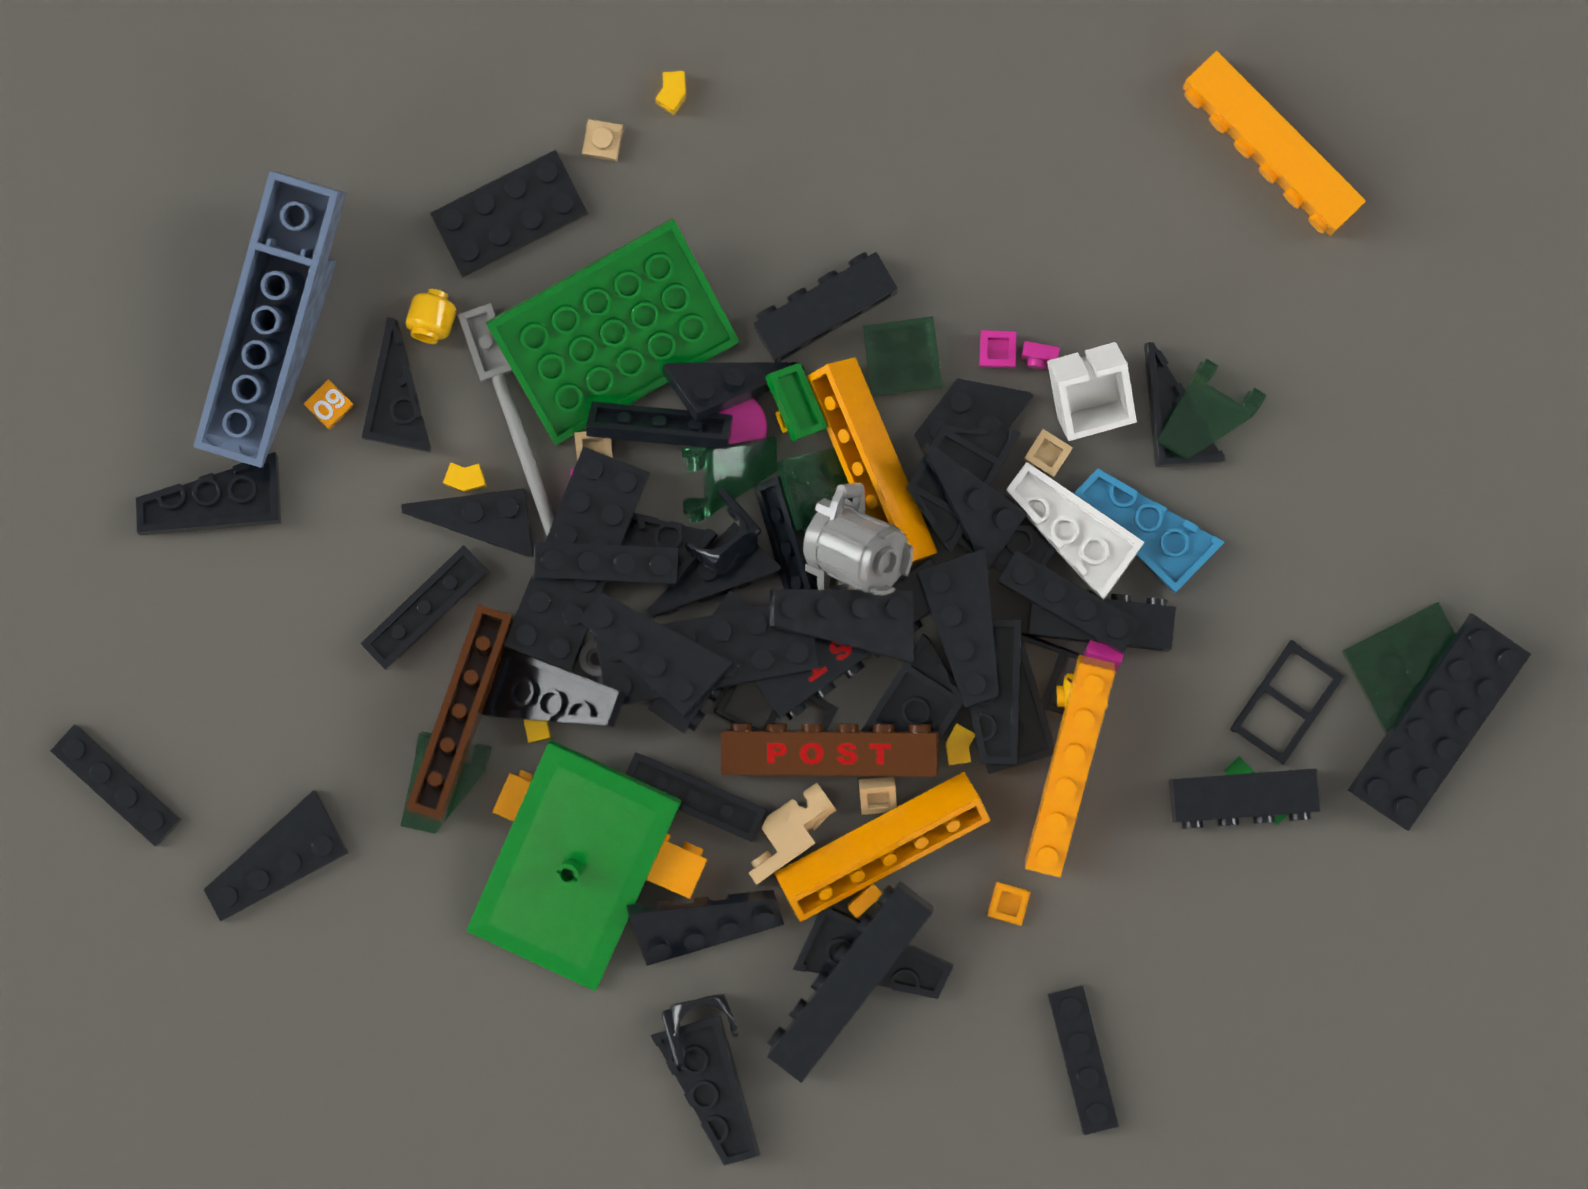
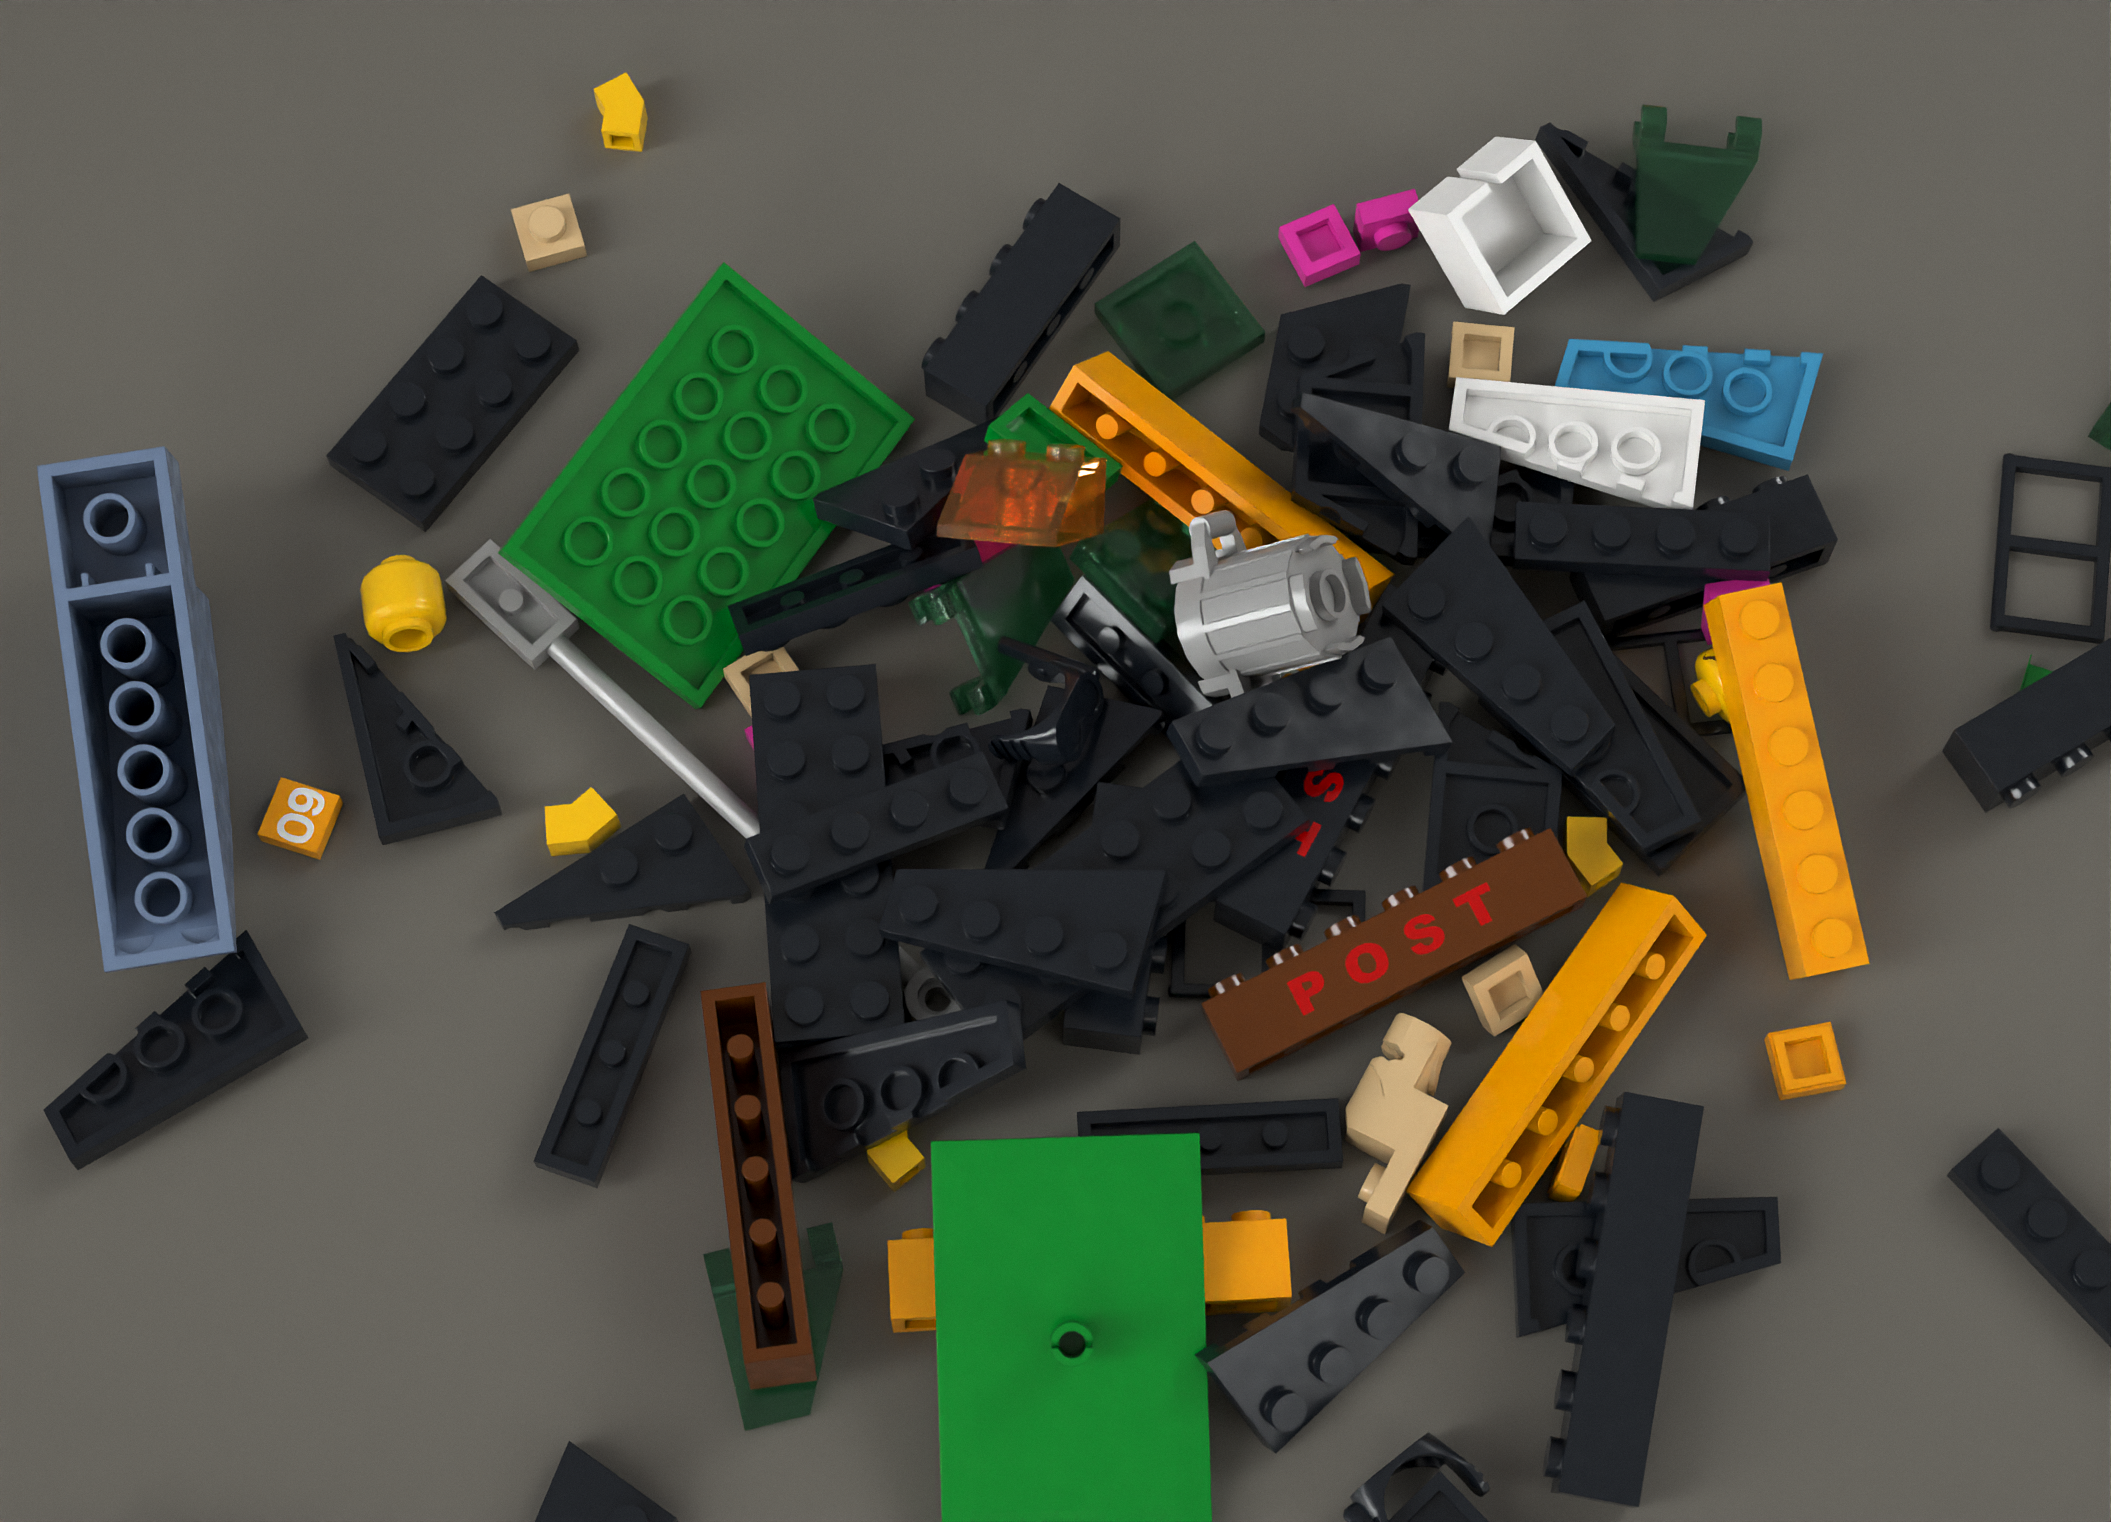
camera: 30 degrees left, 15 degrees down
(763, 428) = (1026, 495): none -> clear orange slope

